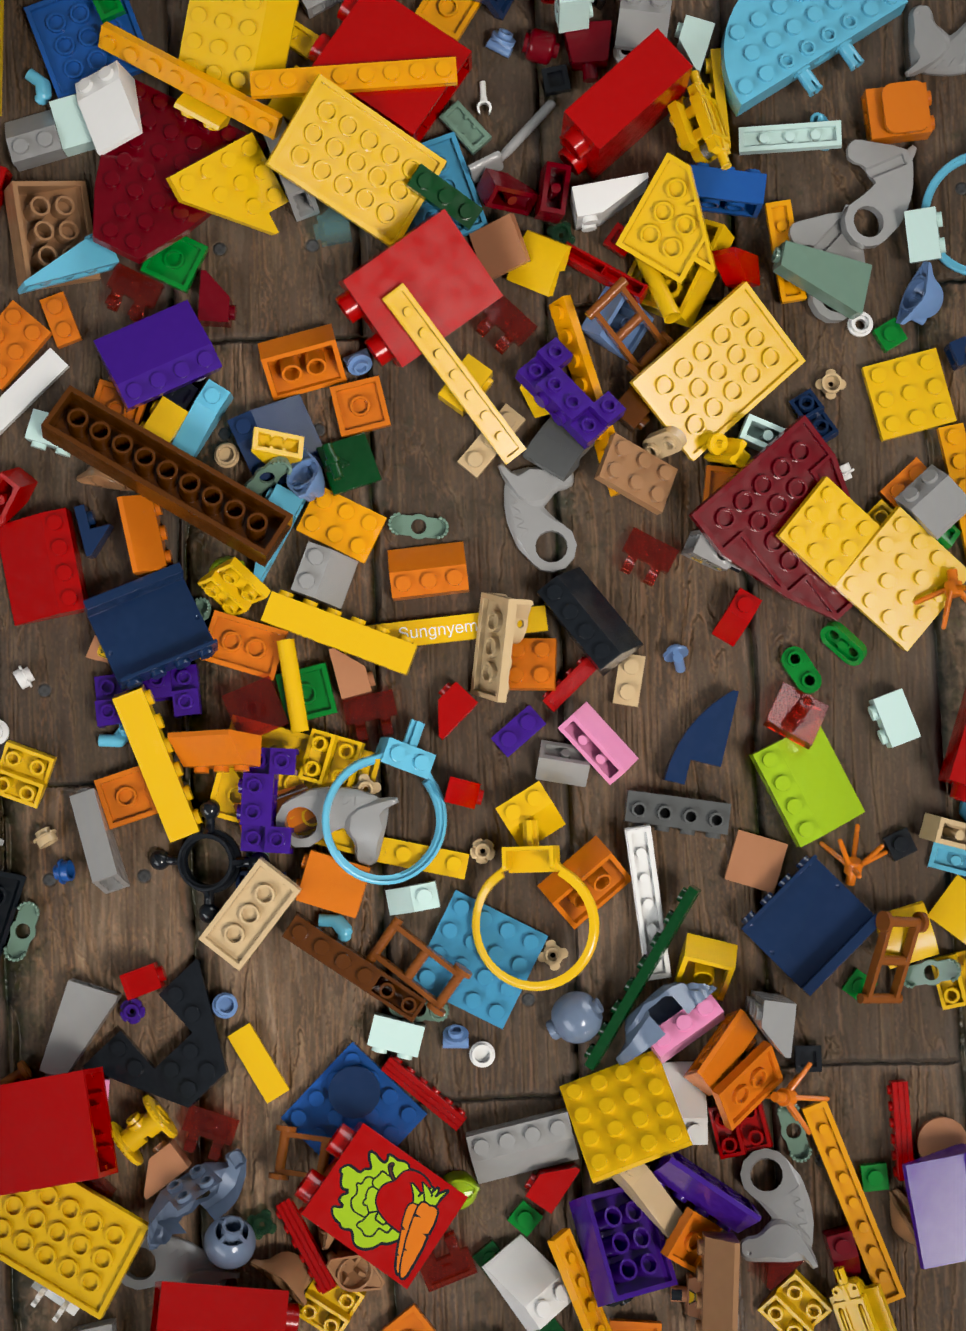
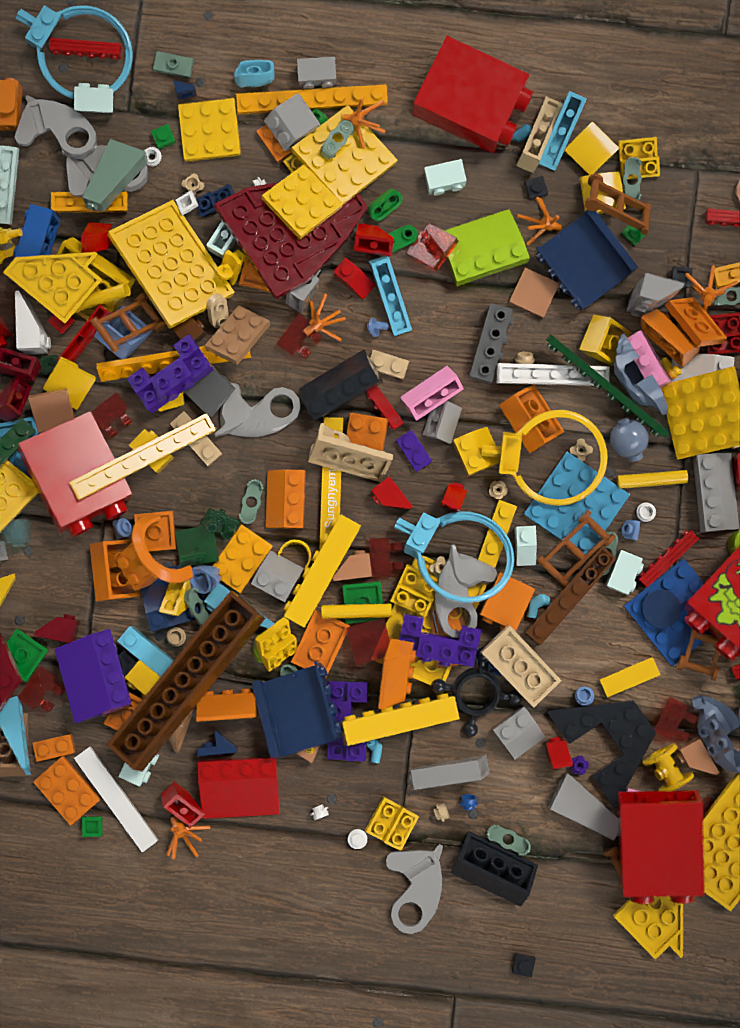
camera: 80 degrees left, 0 degrees up
(125, 797) = (420, 747): orange plate -> none
(164, 924) = (518, 732): none -> light grey slope
(313, 389) = (140, 566): none -> orange piece
(373, 595) = (300, 543): none -> yellow helmet
(384, 488) = (220, 522): none -> clear green hips
(527, 1056) = (652, 479): none -> yellow piece
(664, 861) = (524, 358): none -> tan plate
(667, 578) = (317, 324): none -> orange plant
(676, 1063) = (672, 372): none -> yellow arm
(703, 740) = (439, 316): dark blue slope -> none
(722, 668) = (390, 295): none -> medium azure slope
(791, 634) = (373, 240): none -> red slope
(804, 379) = (187, 202): none -> white slope
(907, 557) = (331, 147): none -> sand green piece
(921, 298) = (139, 109): medium blue hat -> none

